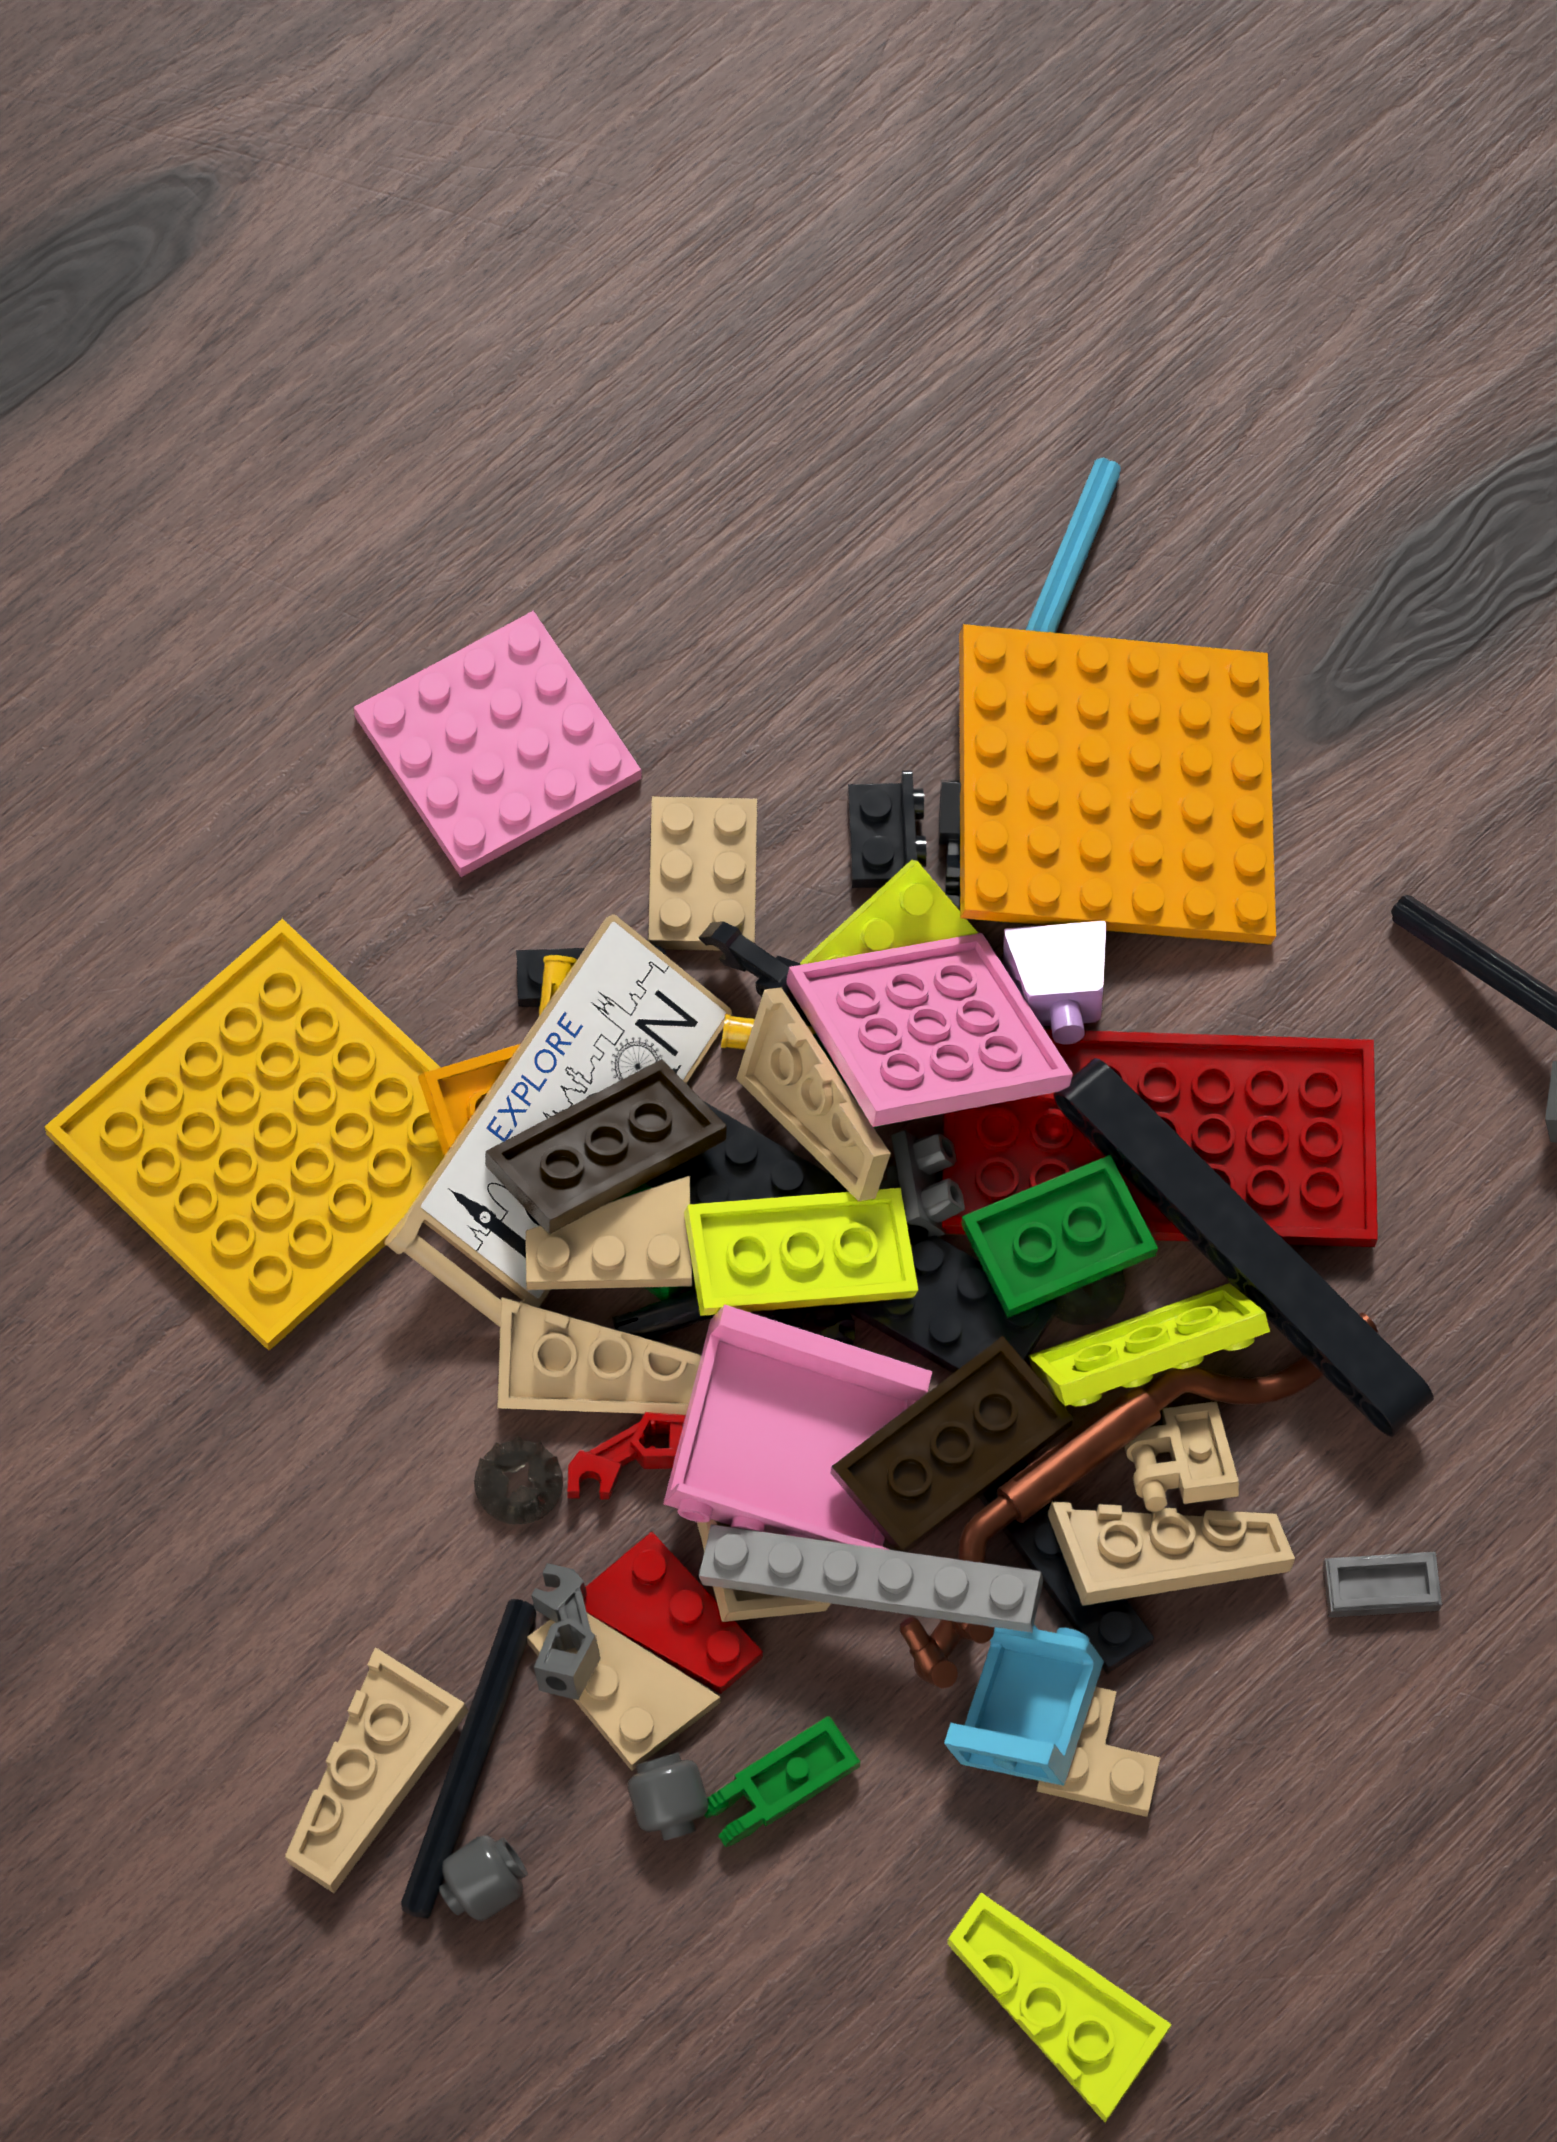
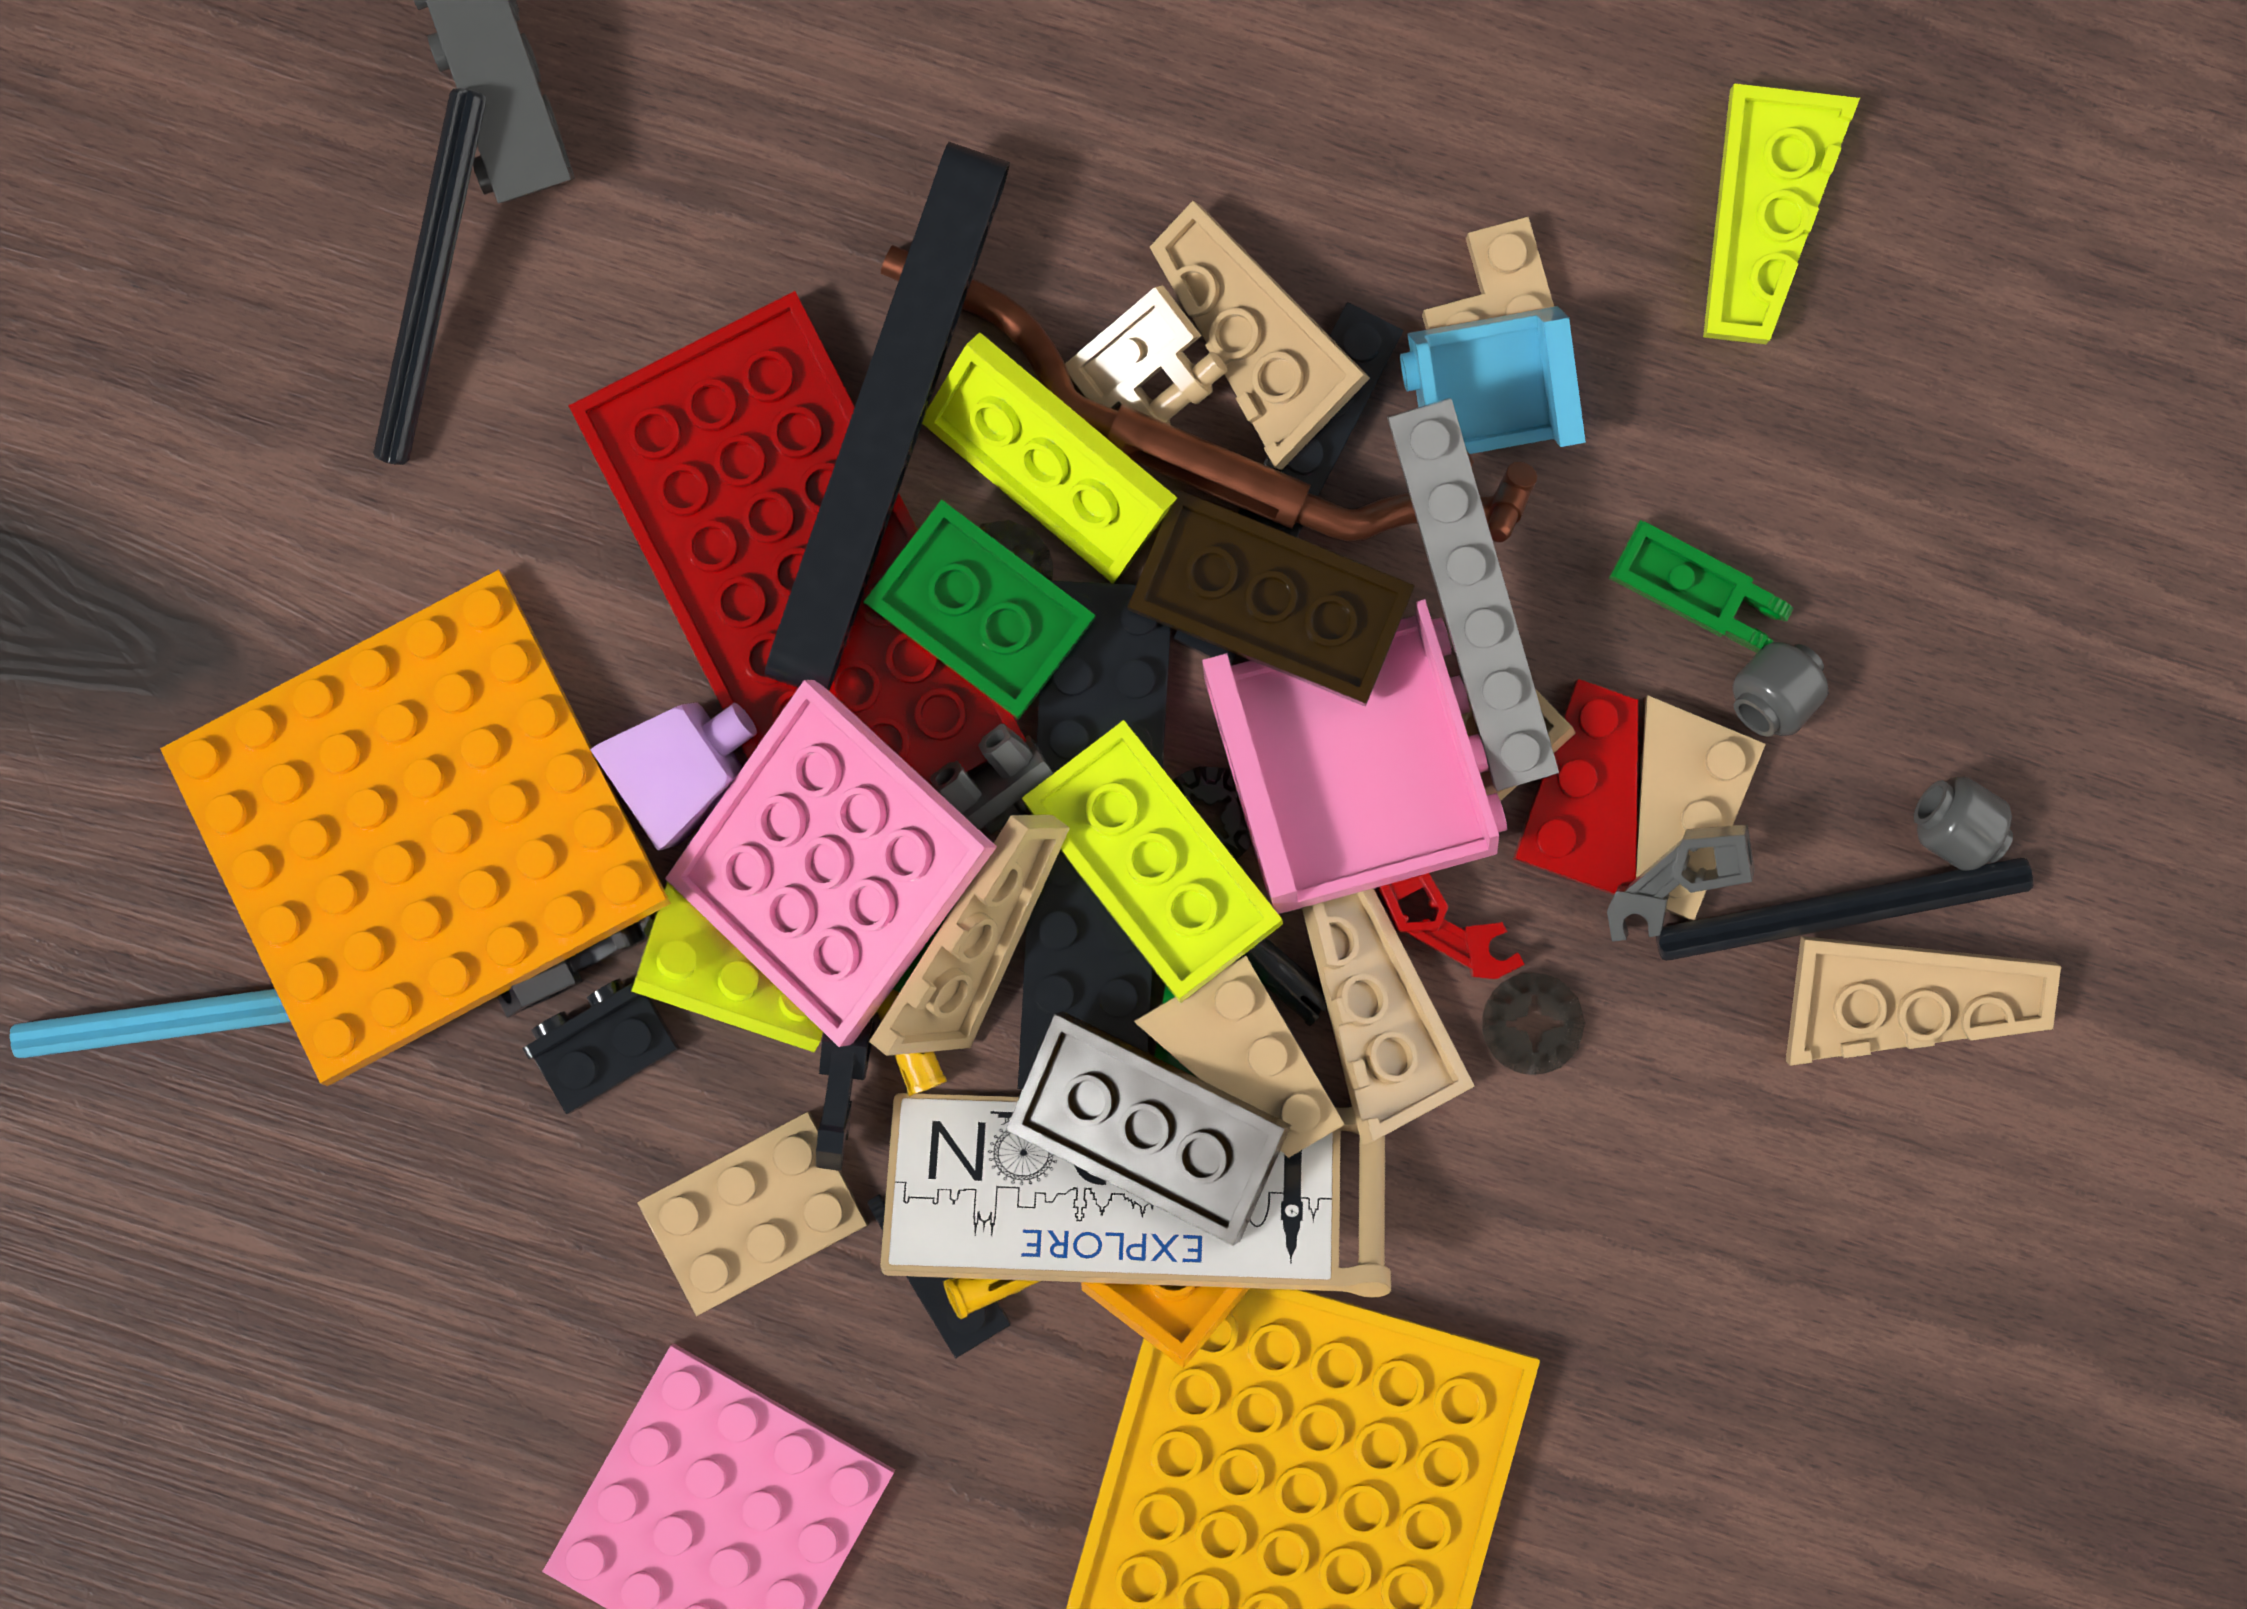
camera: 115 degrees left, 20 degrees up
(1382, 1584) = (1160, 110): flat silver tile -> none

